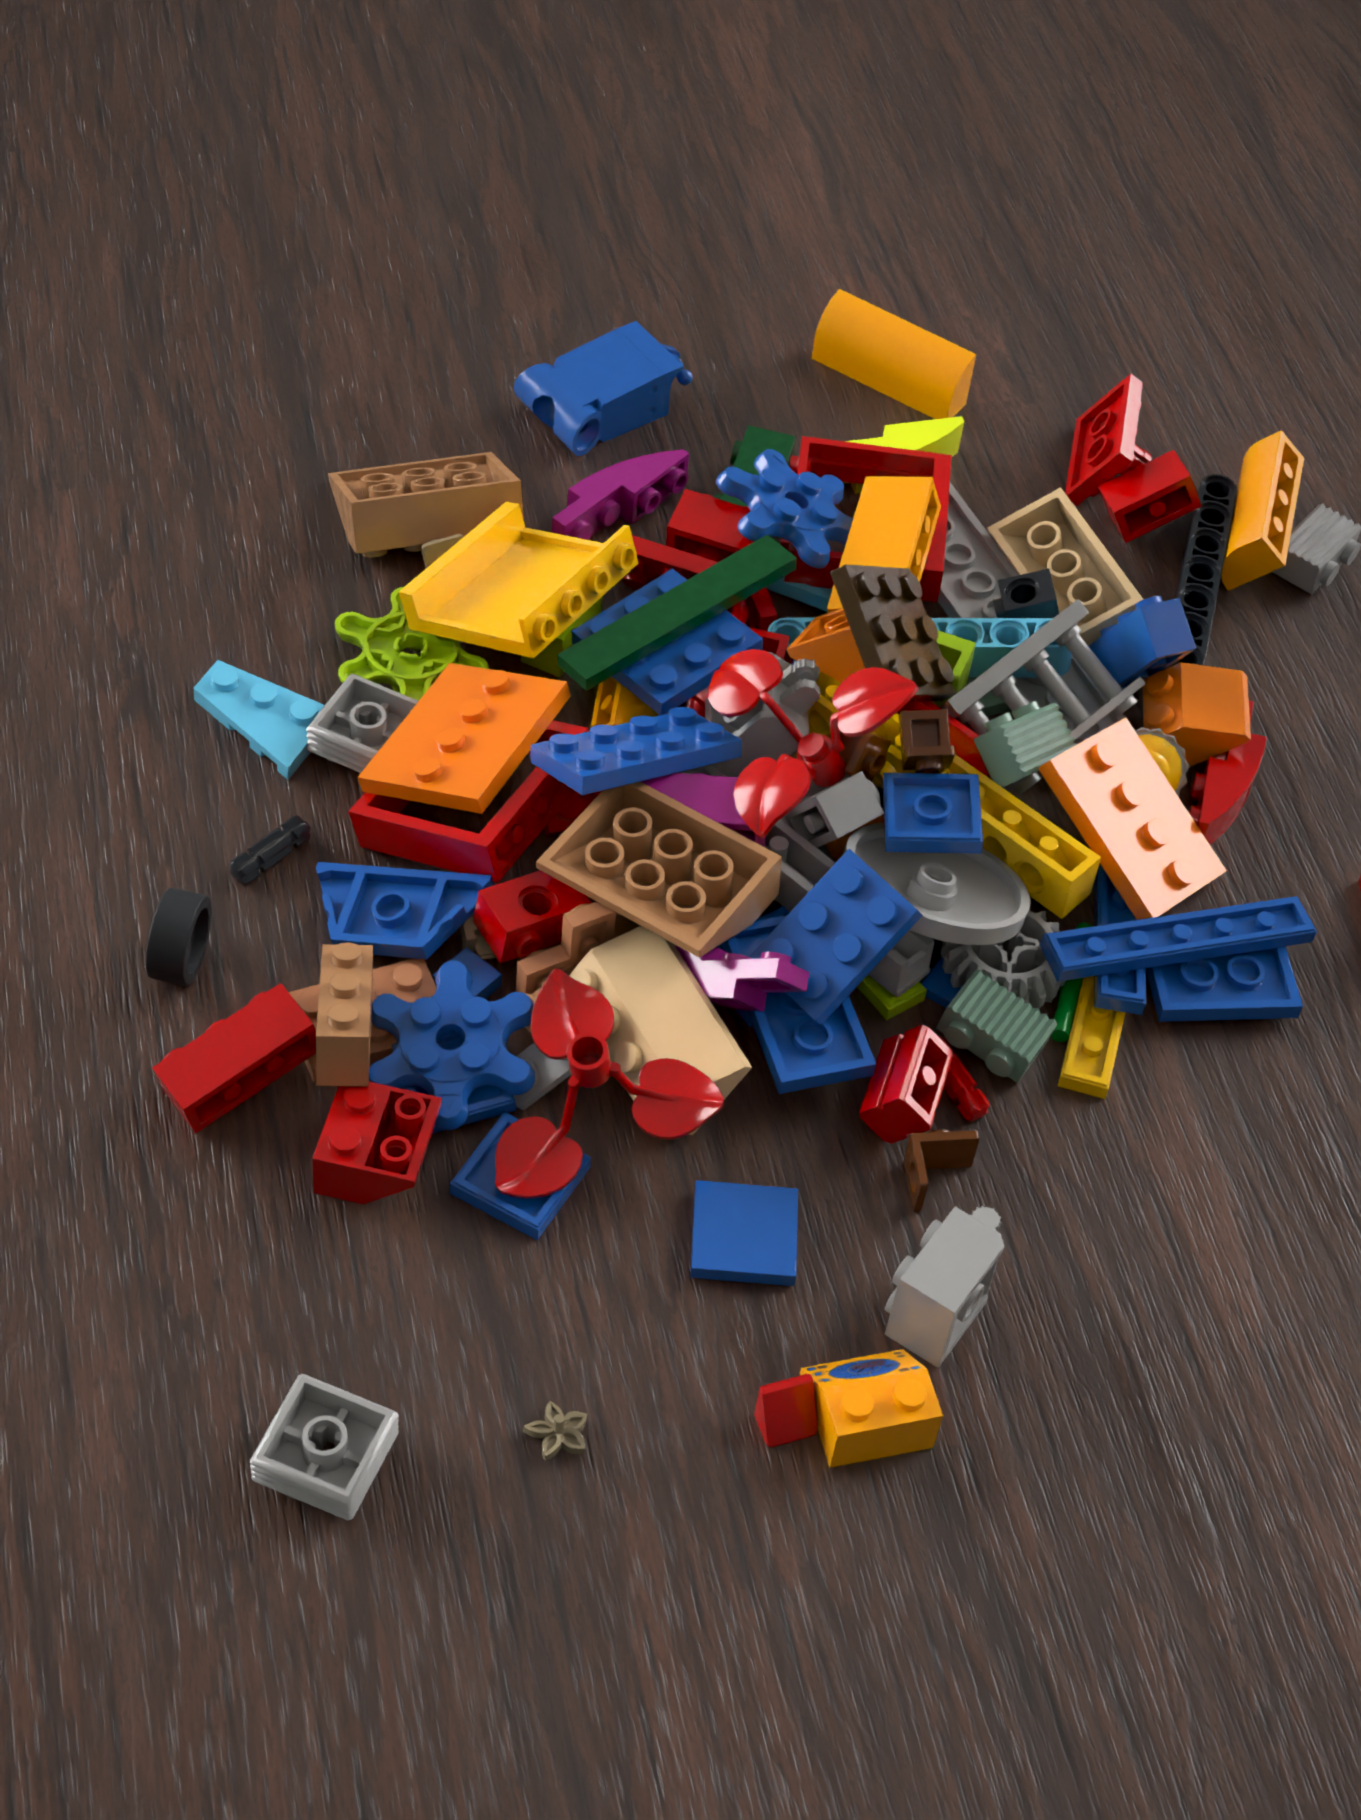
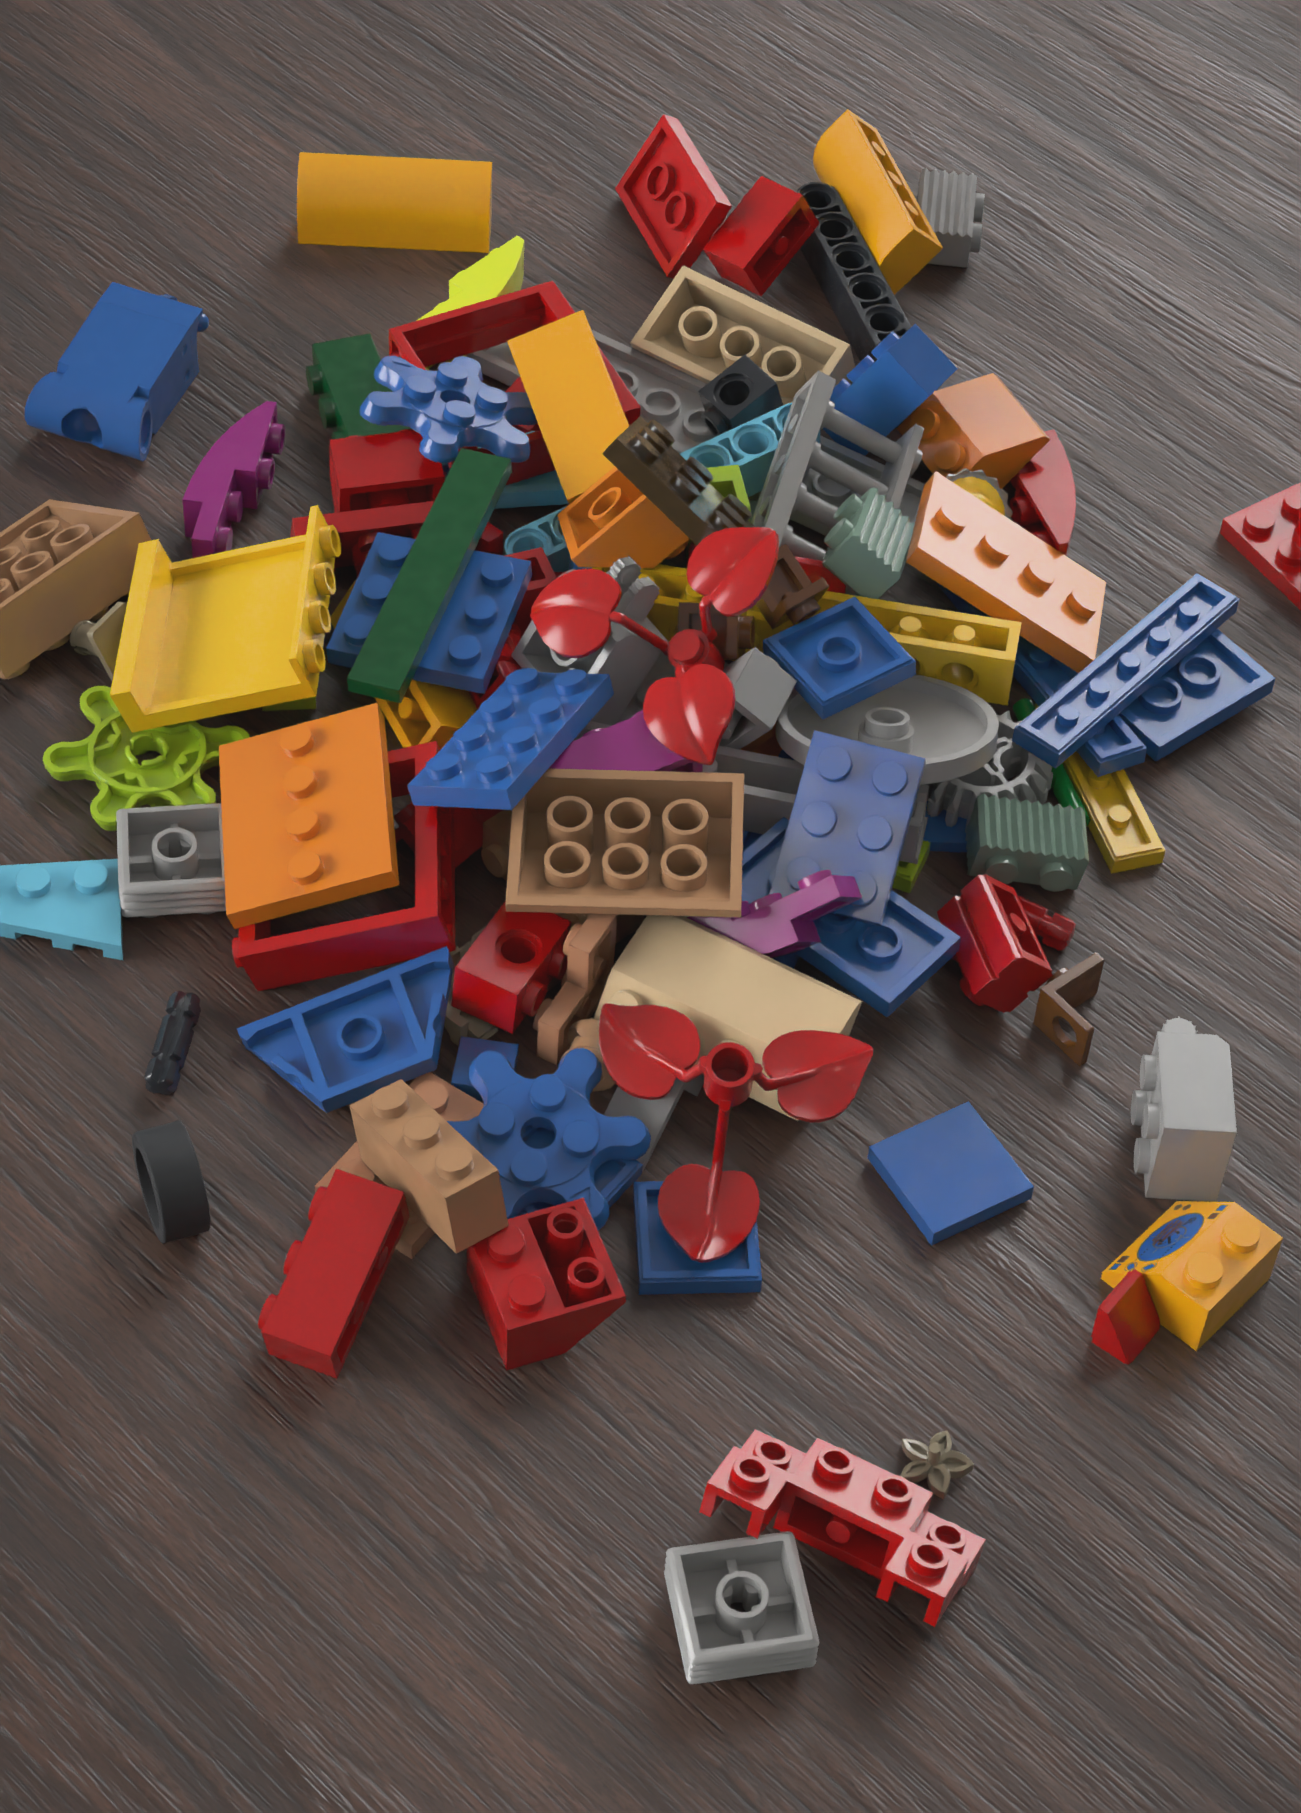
camera: 30 degrees left, 0 degrees up
(457, 1427) = (849, 1513): none -> red bracket

